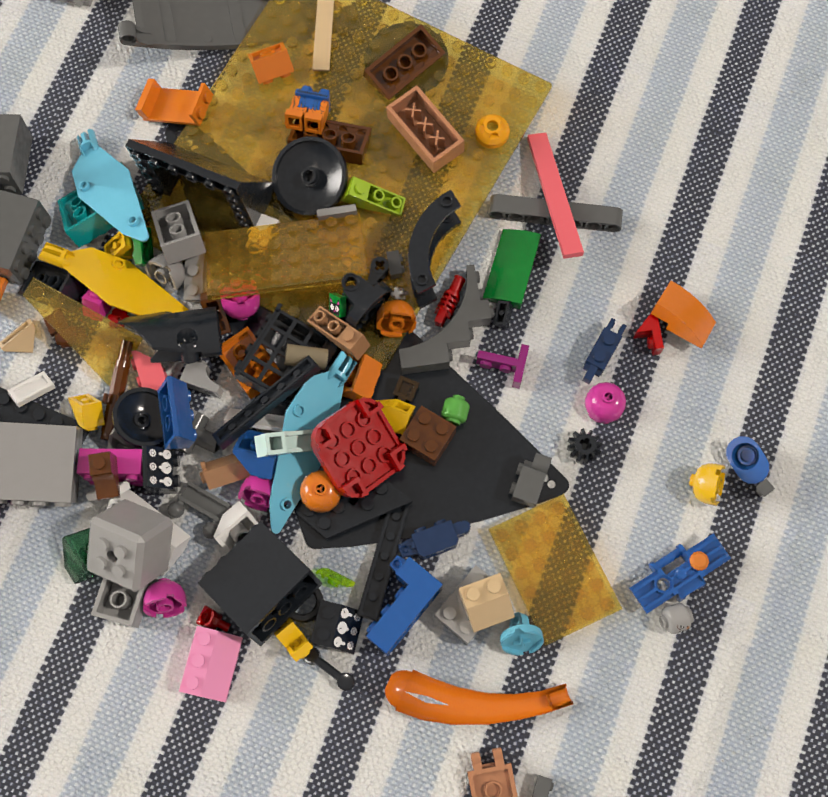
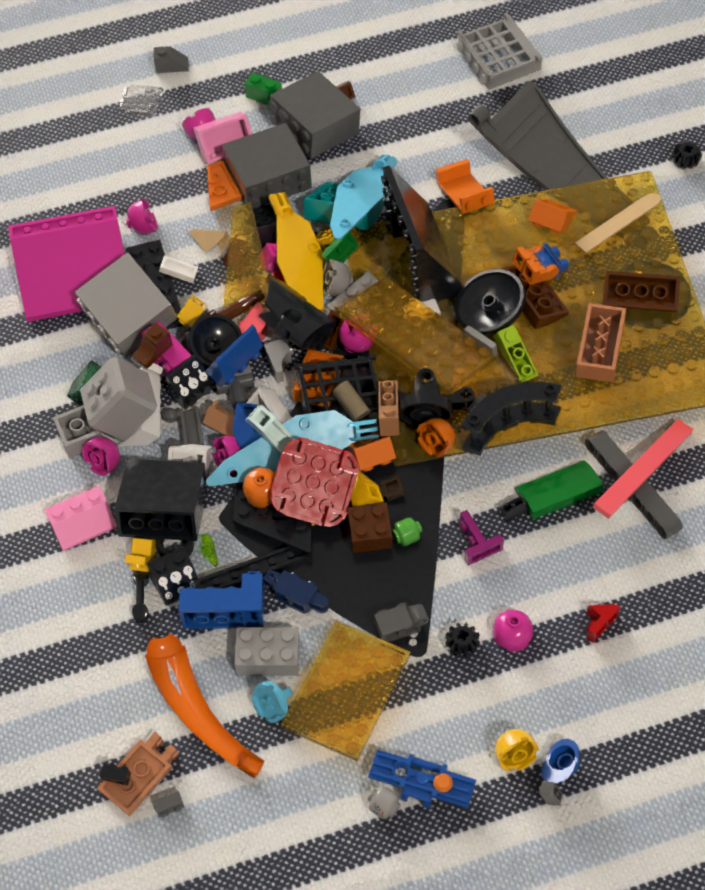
camera: 50 degrees right, 15 degrees down
(178, 232) = (367, 258): light grey brick -> none
(211, 619) = (111, 493): red piece -> none
(266, 402) = (293, 400): black tile -> none
(337, 304) = (407, 388): green tile -> none
(399, 293) = (456, 422): light grey axle -> none
(435, 352) = (468, 489): dark grey arch -> none
(449, 301) = (488, 466): red hinge -> none
(486, 602) = (273, 649): tan slope -> none
(495, 138) = (648, 394): light orange piece -> none
(602, 351) = (551, 596): dark blue hinge -> none
(684, 314) = (637, 630): orange slope -> none

